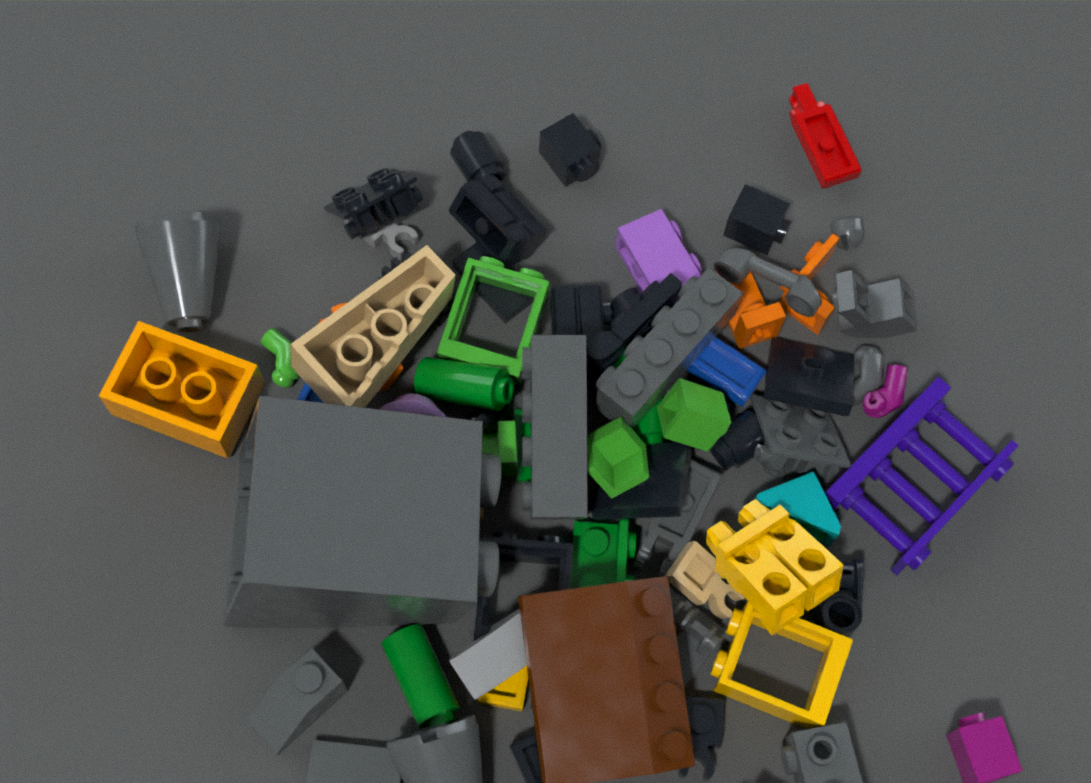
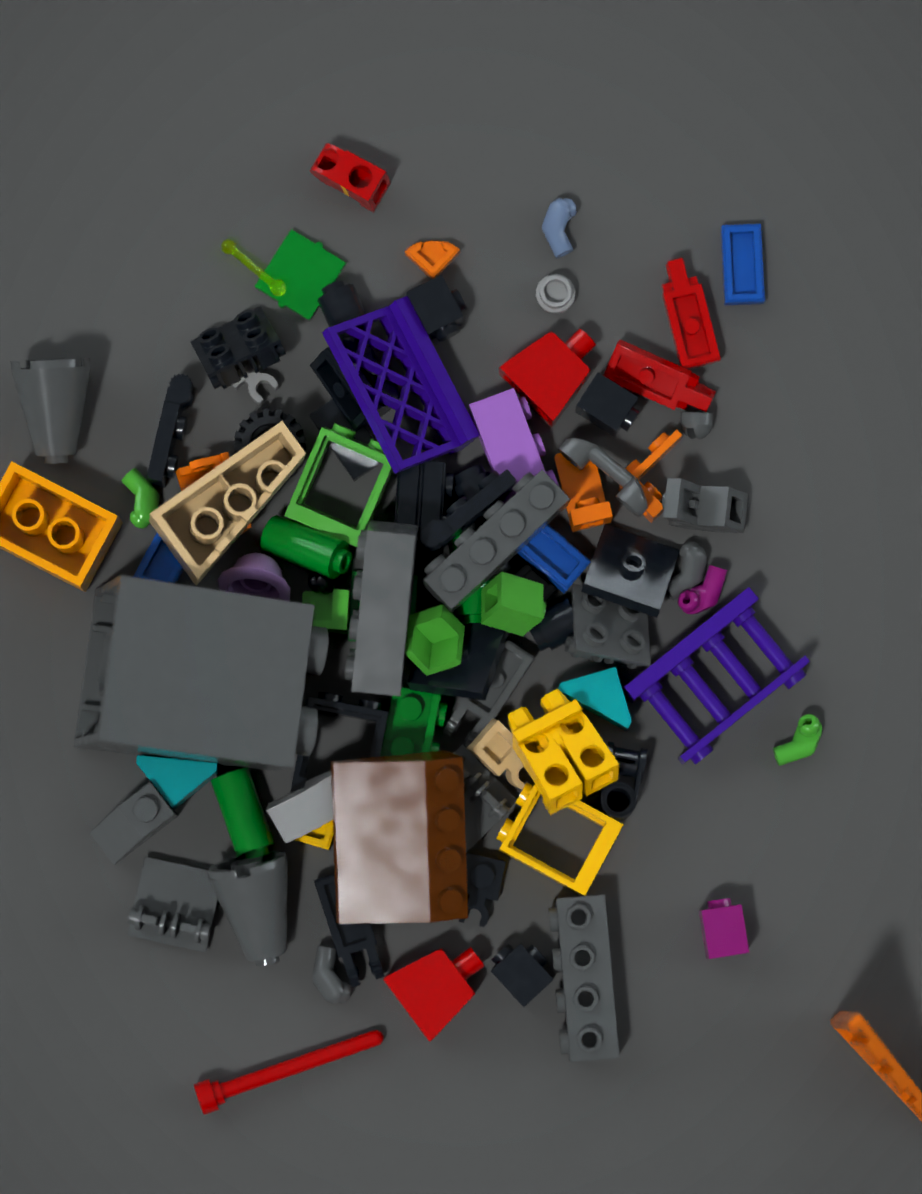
camera: 10 degrees right, 15 degrees up
(309, 283) = (170, 427): none -> black hinge
(343, 643) = (177, 777): none -> teal slope
(407, 145) = (277, 286): none -> clear neon green hinge
(427, 137) = (304, 270): none -> green piece
(472, 41) = (351, 175): none -> red leg
(558, 107) = (432, 256): none -> orange tile
(560, 204) = (423, 376): none -> dark purple fence
(675, 71) = (554, 224): none -> sand blue arm
(686, 129) = (555, 293): none -> light grey plate
(693, 197) = (550, 372): none -> red torso
(806, 194) = (657, 378): none -> red hinge
(863, 91) = (742, 264): none -> blue tile
(1023, 535) = (803, 742): none -> bright green arm

